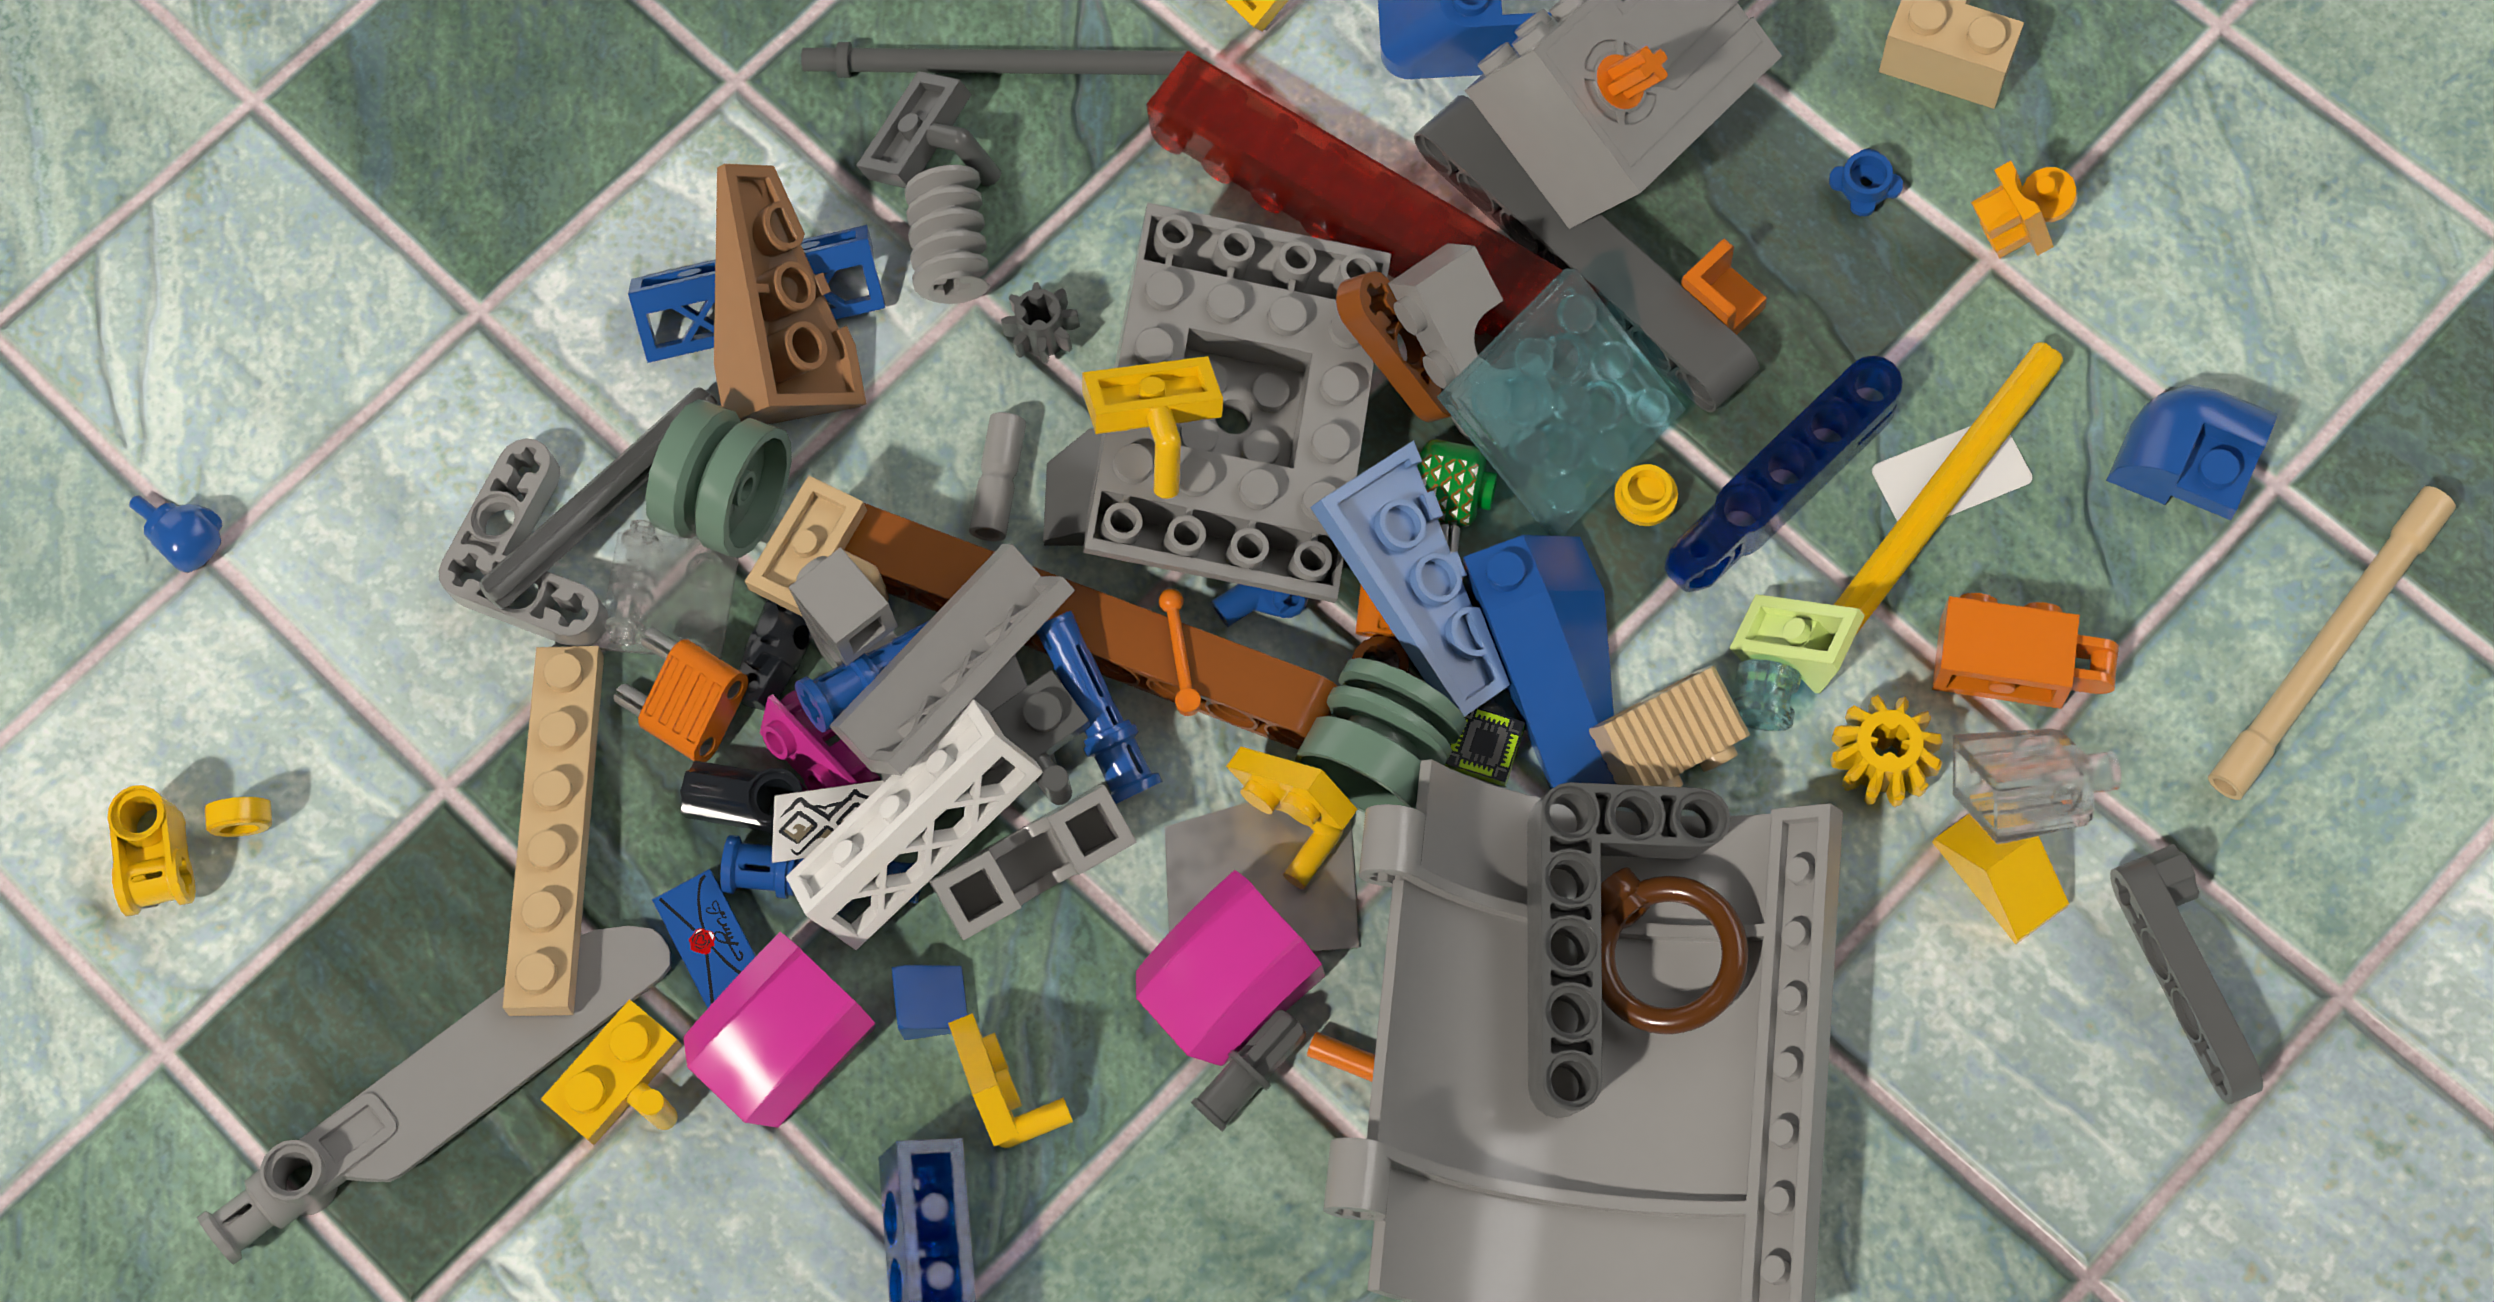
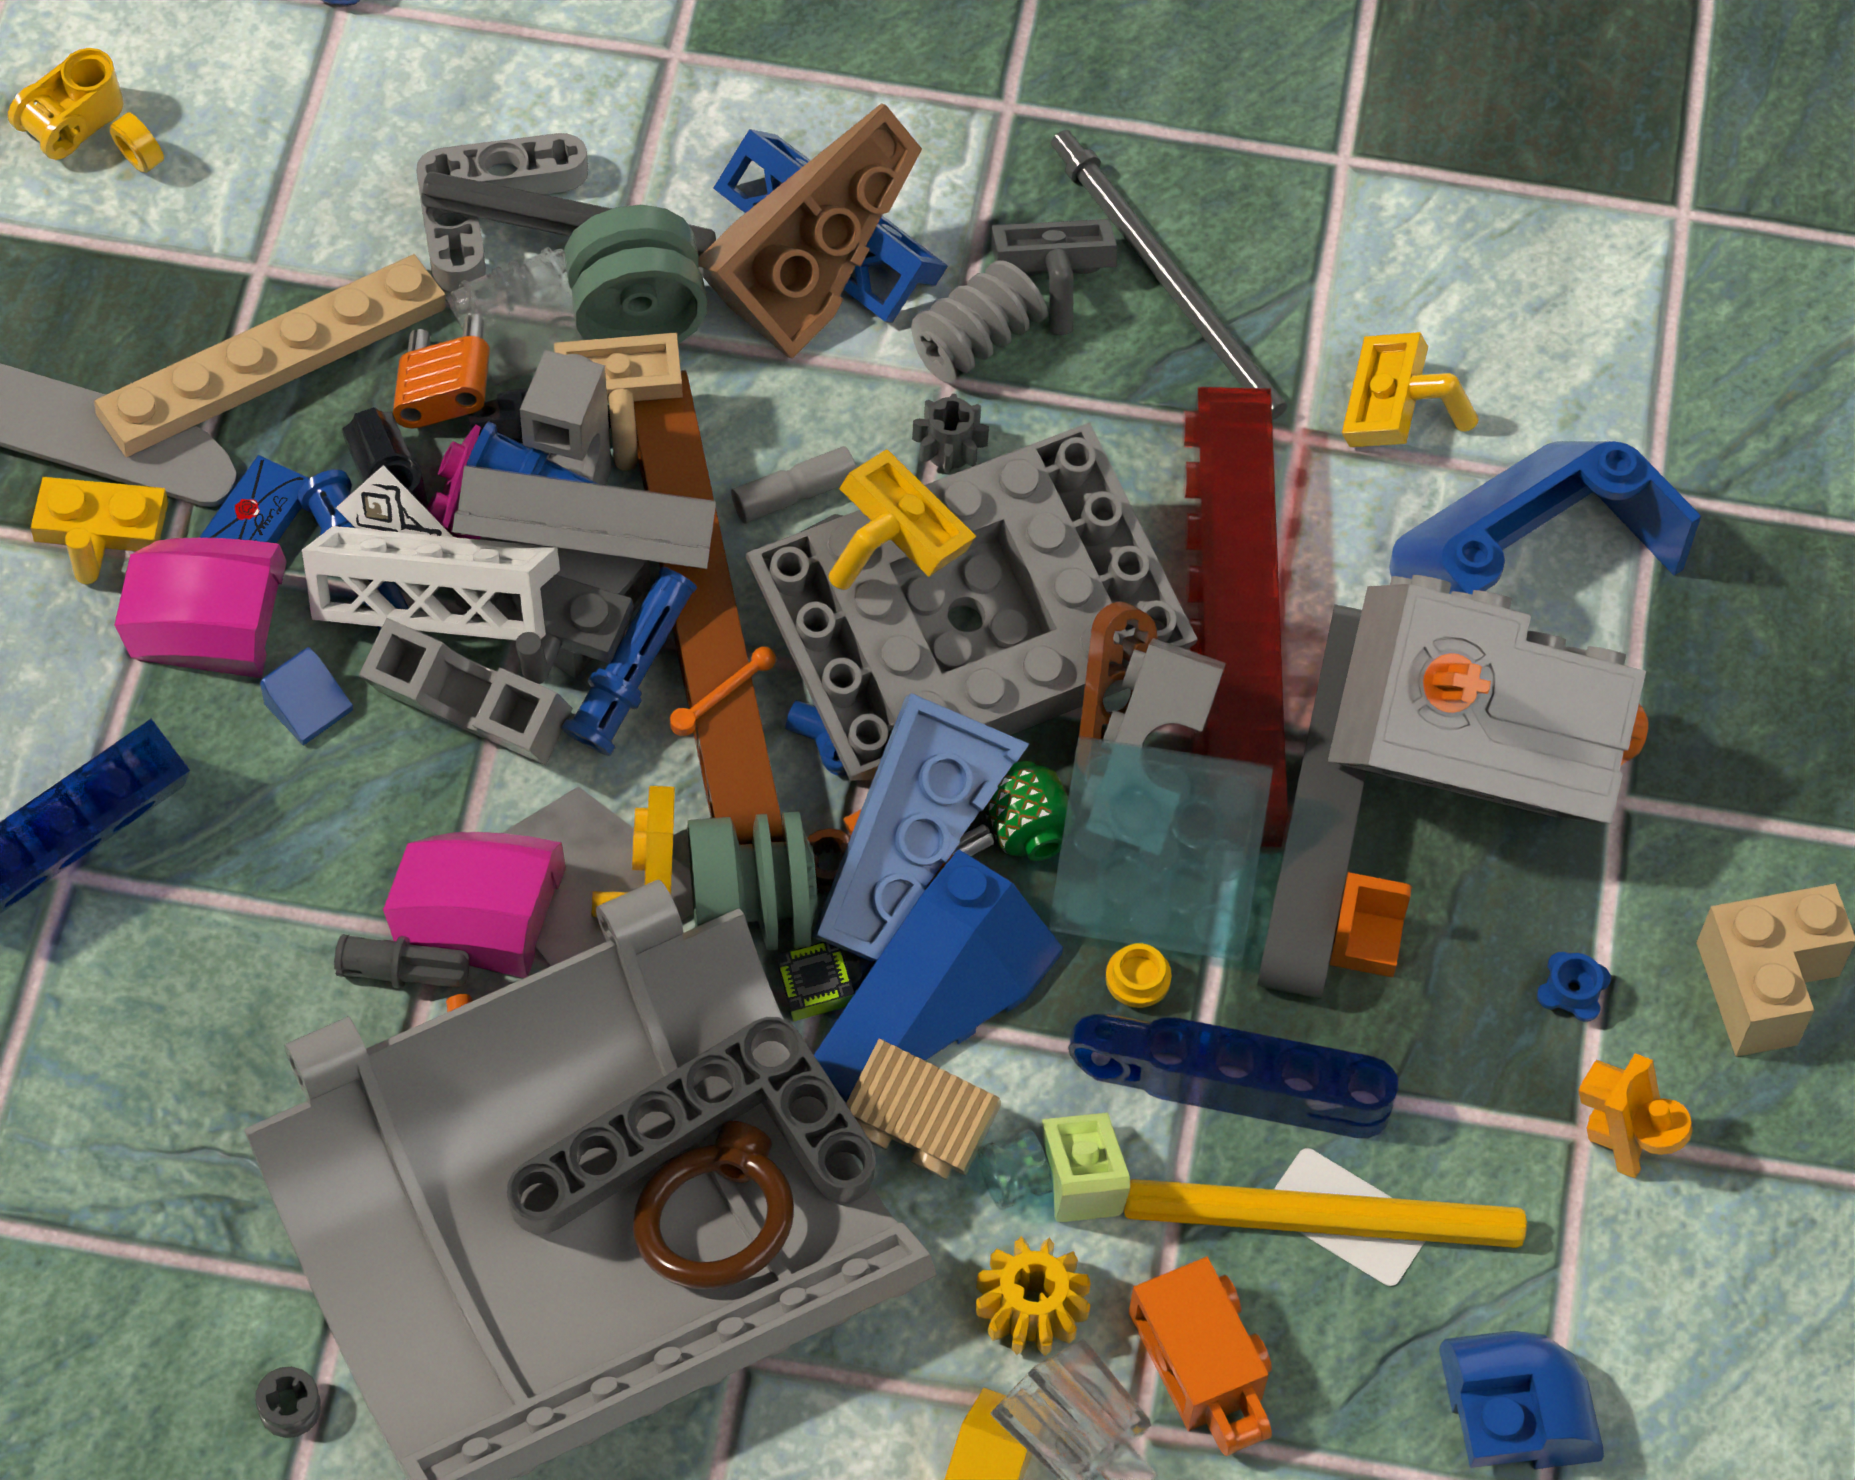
camera: 45 degrees right, 10 degrees down
(995, 1090) = (246, 766): yellow plate -> none

